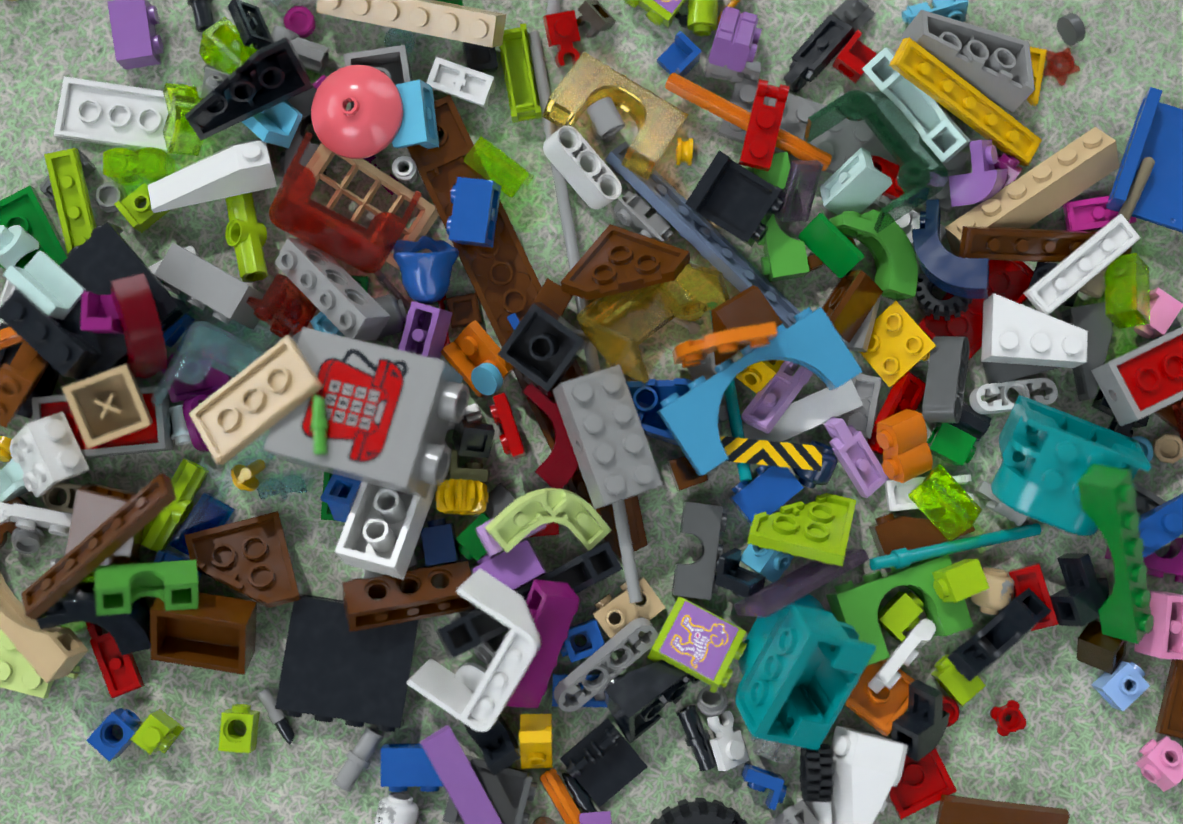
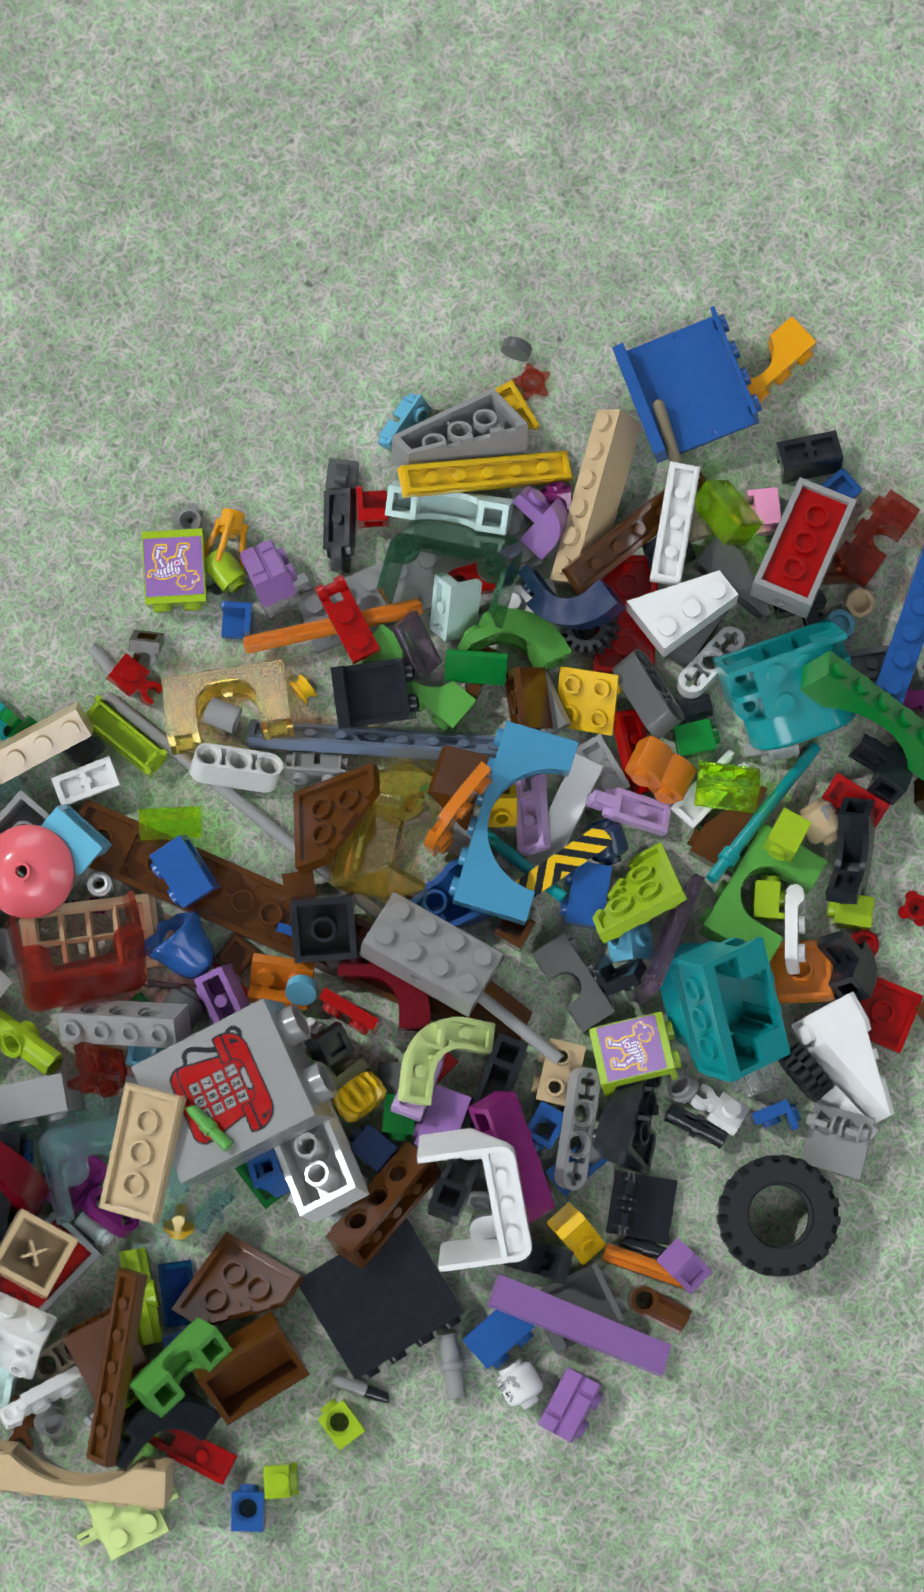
camera: 30 degrees left, 5 degrees down
(1089, 214) = (650, 477): dark pink hinge -> none

